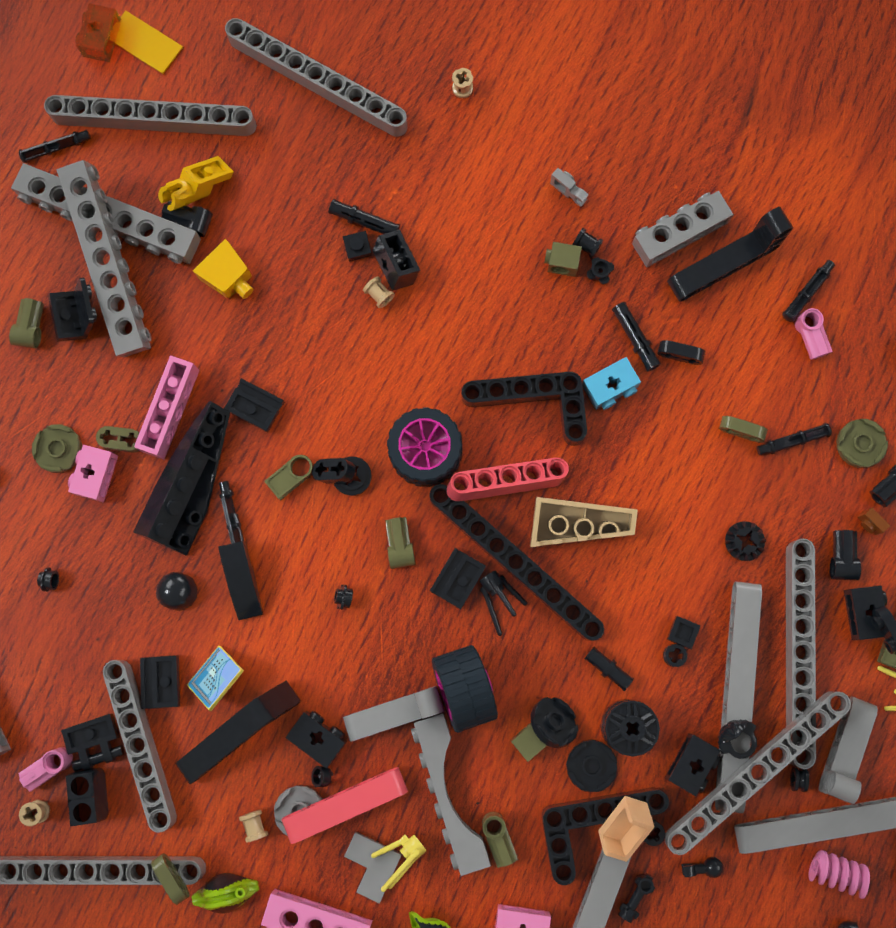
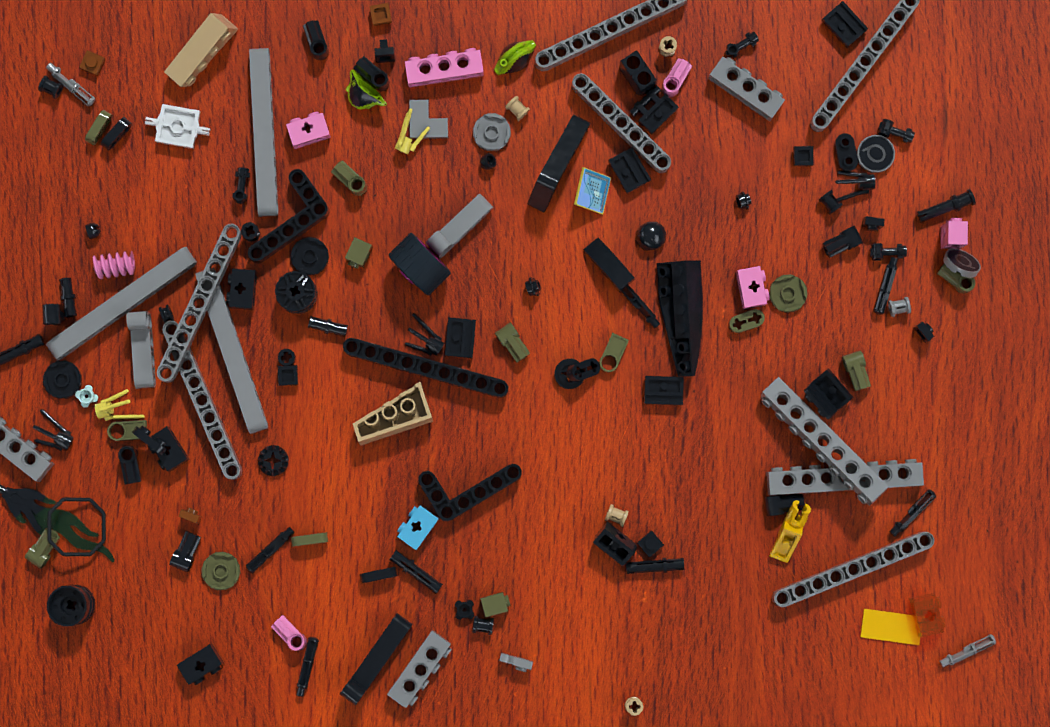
camera: 140 degrees right, 5 degrees up
(167, 407) = (723, 357): bright pink brick -> none
(170, 878) = (553, 49): olive beam -> none
(225, 272) = (734, 477): yellow torso -> none
(303, 738) = (496, 177): black brick -> none
(310, 68) = (735, 661): light grey beam -> none
(344, 805) = (463, 150): coral beam -> none
(425, 446) = (527, 416): wheel -> none
(468, 846) = (368, 164): light grey arch -> none
(516, 472) = (453, 429): coral beam -> none
(554, 722) = (348, 271): black tile -> none
(626, 828) = (269, 224): light nougat panel -> none
(711, 867) = (200, 228): black arm -> none
(732, 731) = (227, 322): black piece -> none
(844, 563) = (197, 477): black piece -> none

